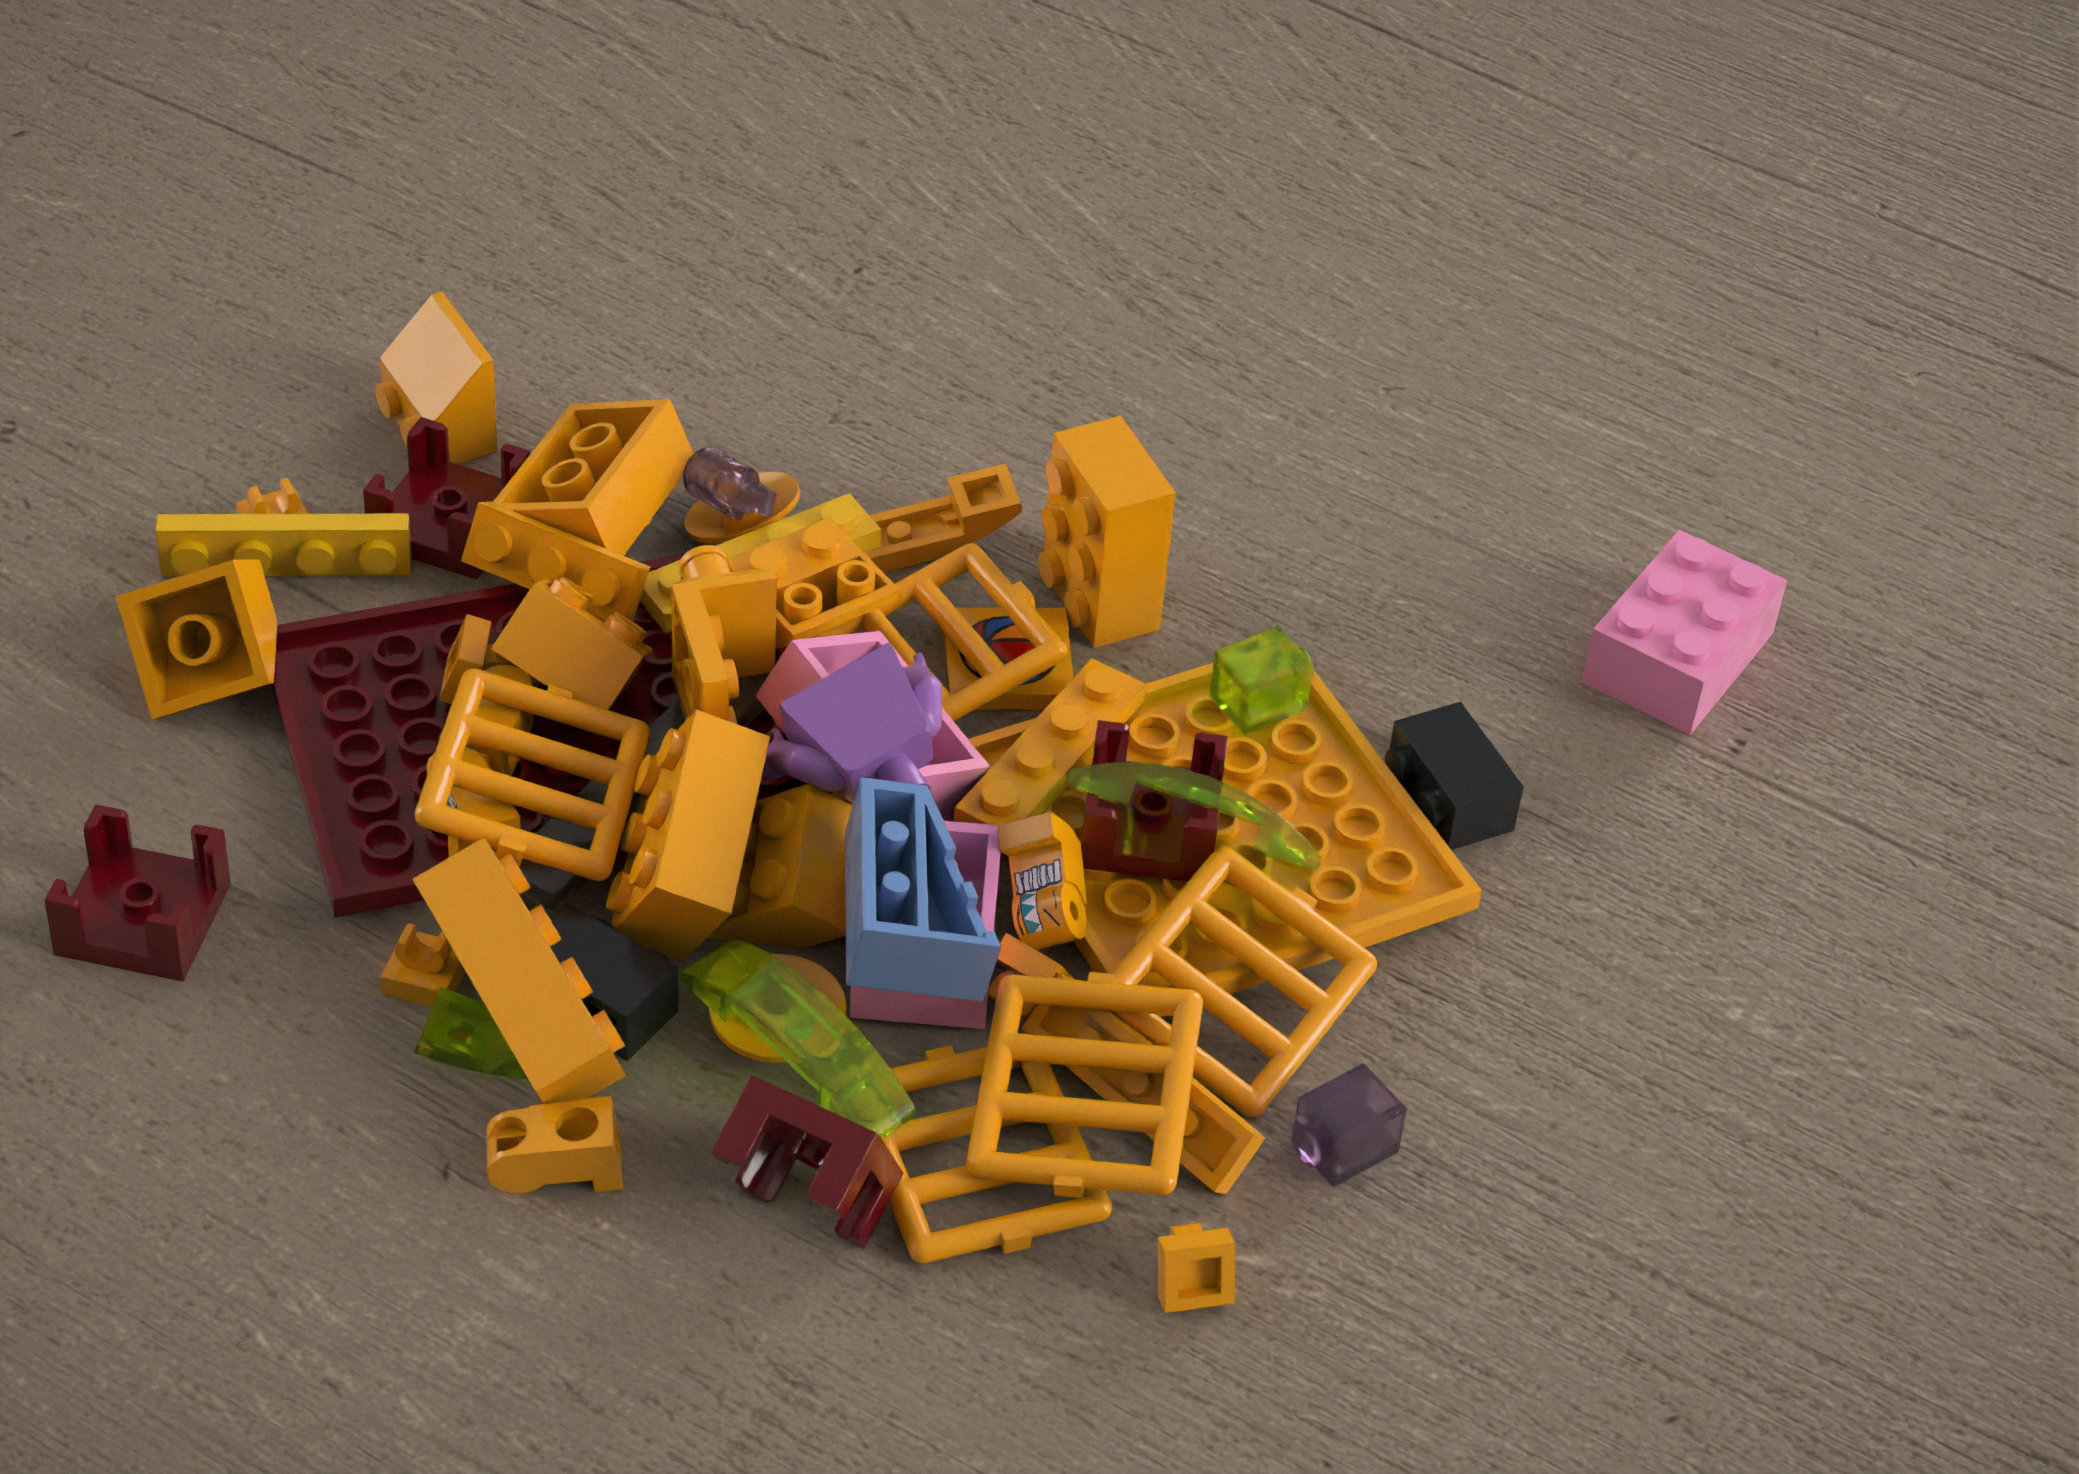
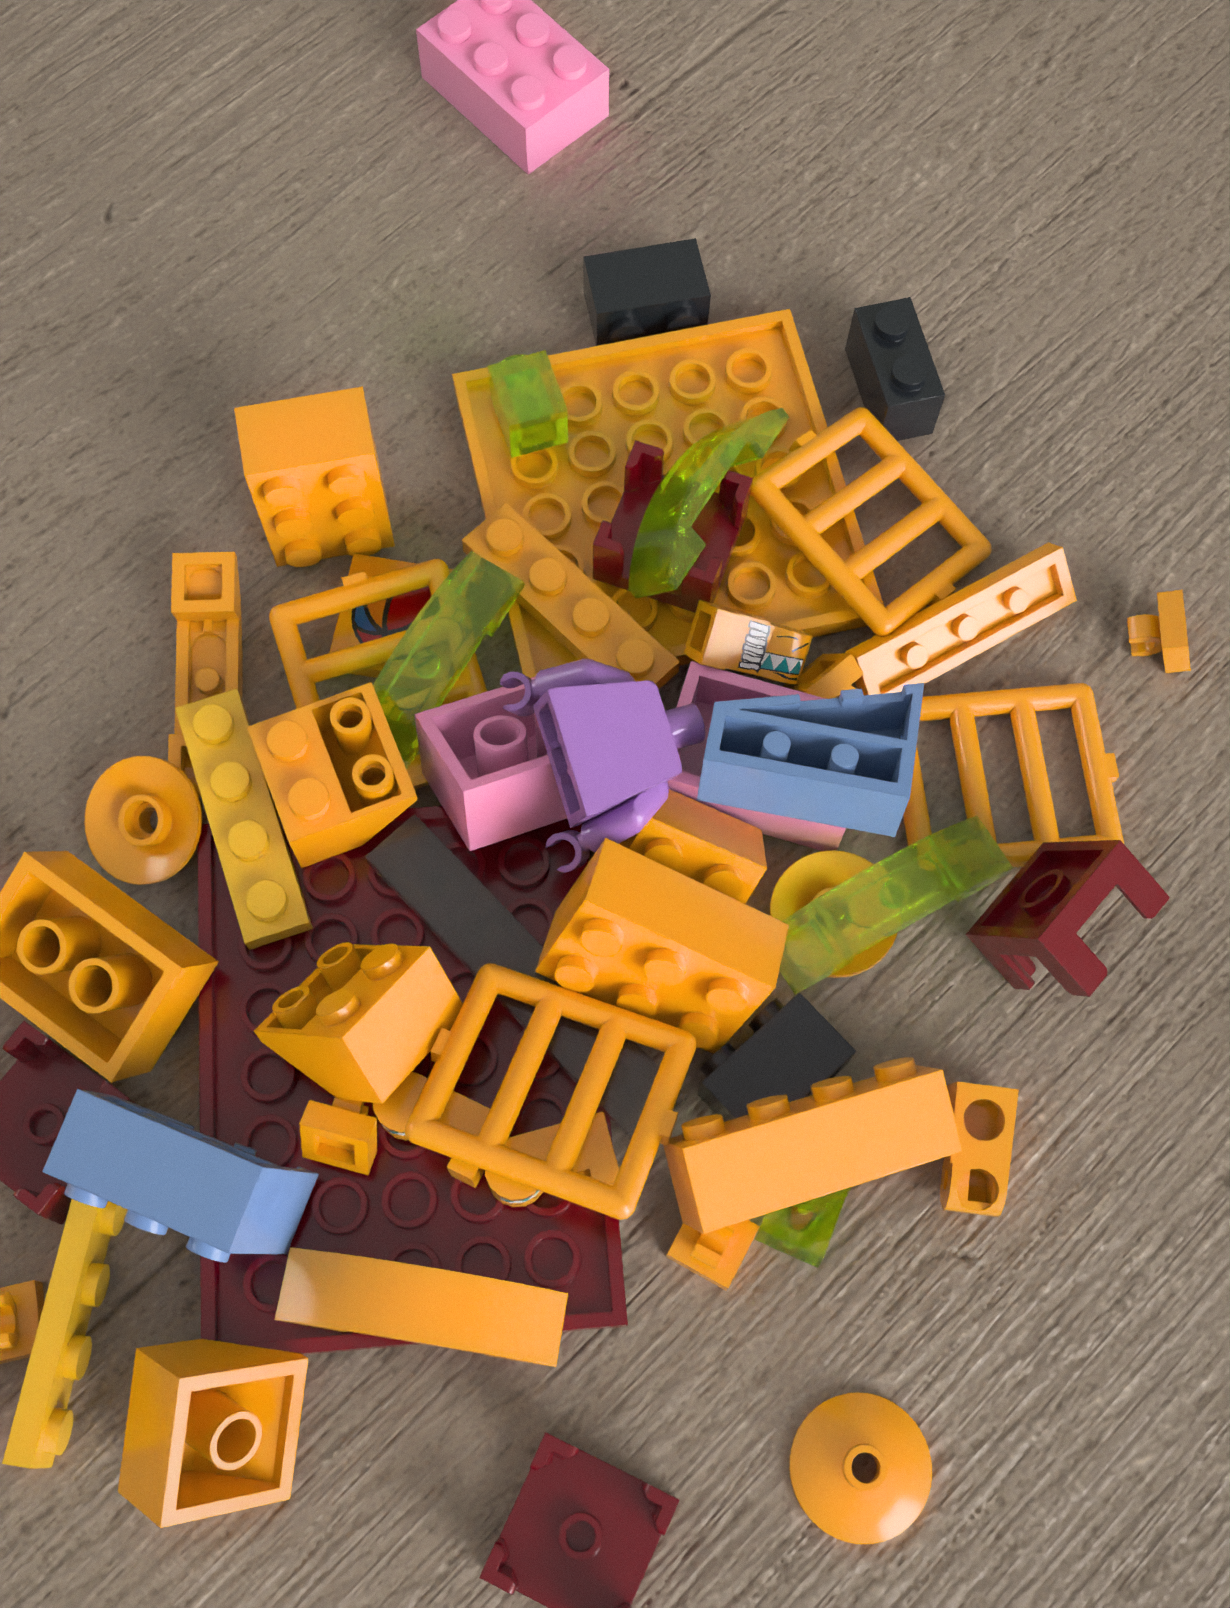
camera: 75 degrees left, 25 degrees up
(226, 1111) = (823, 1471): none -> light orange dish
(324, 757) = (422, 1305): none -> light orange slope
(400, 556) = (177, 1178): none -> medium blue wedge
(533, 551) = (208, 1021): light orange plate -> none
(719, 630) = (429, 895): light orange plate -> none
(726, 484) = (130, 823): hinge -> none
(971, 645) = (441, 644): none -> clear neon green slope
(1166, 1120) = (1041, 610): light orange bar -> none
(1348, 1125) = (1030, 479): clear purple brick -> none
(1437, 987) = (895, 368): none -> black brick

